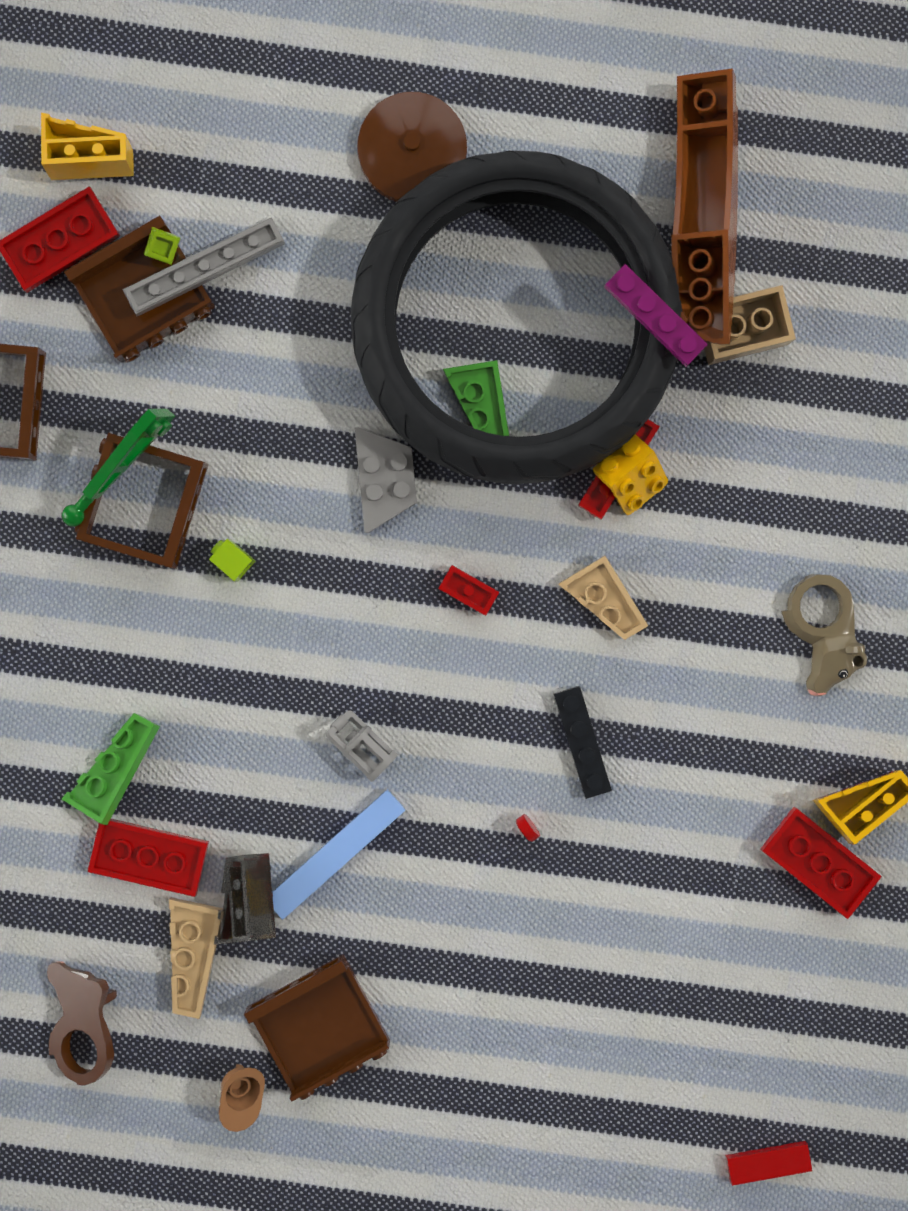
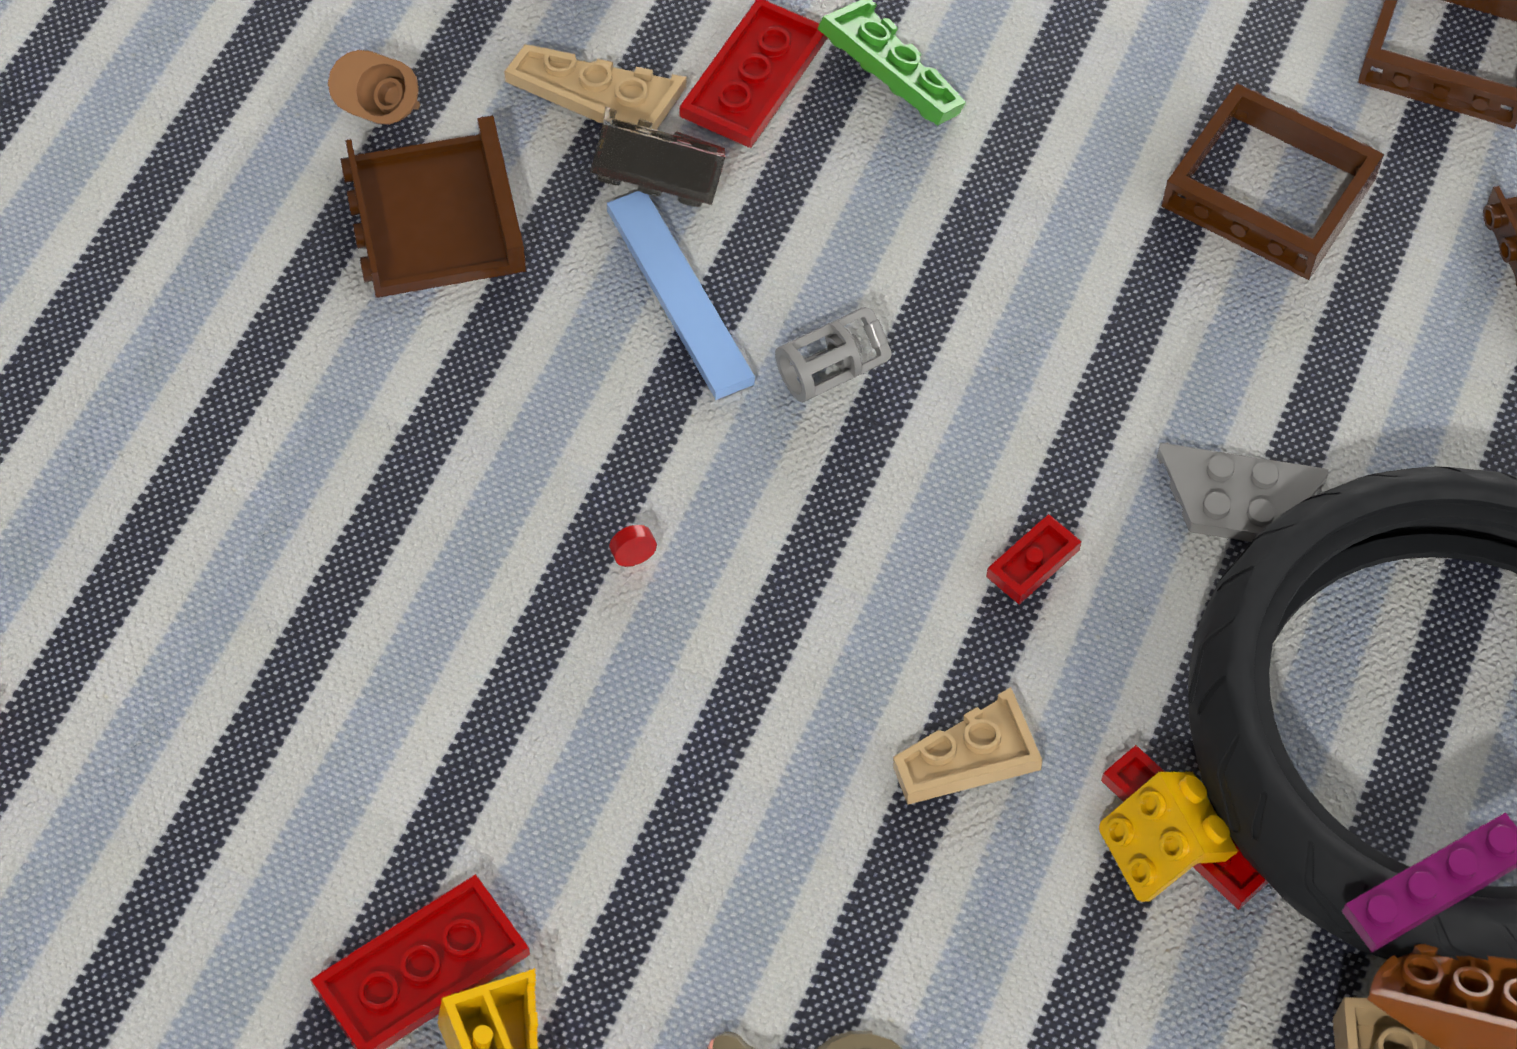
camera: 105 degrees right, 30 degrees down
(150, 426) = (1390, 172): green plate -> none
(231, 559) = (1159, 265): lime brick -> none
(480, 395) = (1341, 654): bright green wing -> none
(582, 742) = (742, 661): black plate -> none

